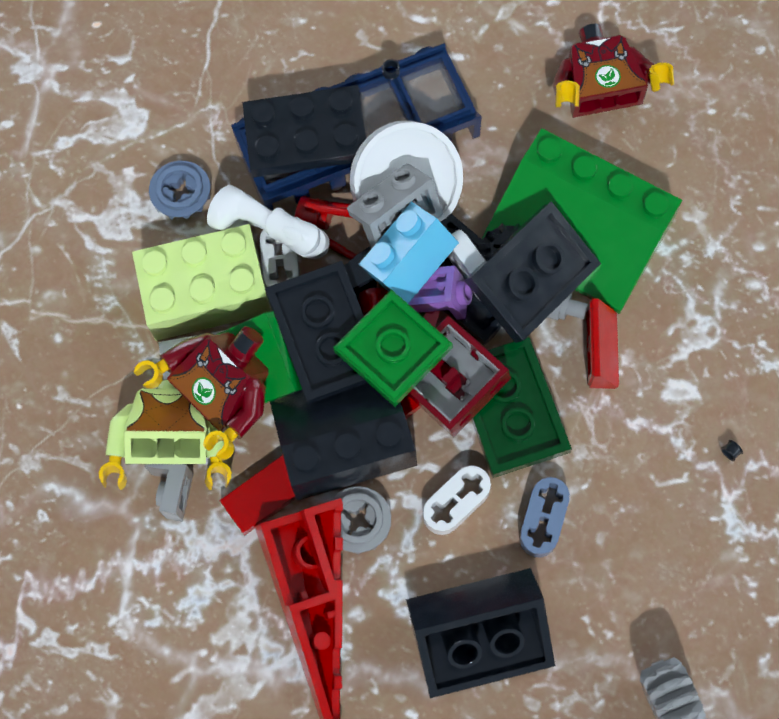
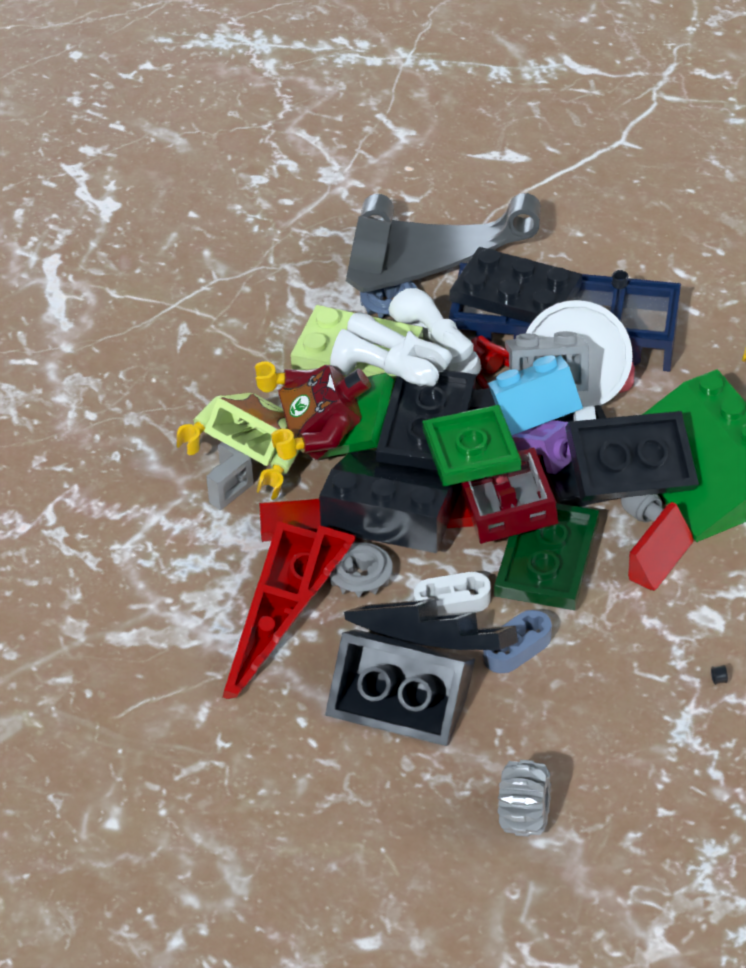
camera: 30 degrees right, 25 degrees down
(167, 125) = (400, 251): none -> dark grey panel
(273, 289) = (408, 356): none -> white piece
(460, 560) = (421, 625): none -> black slope

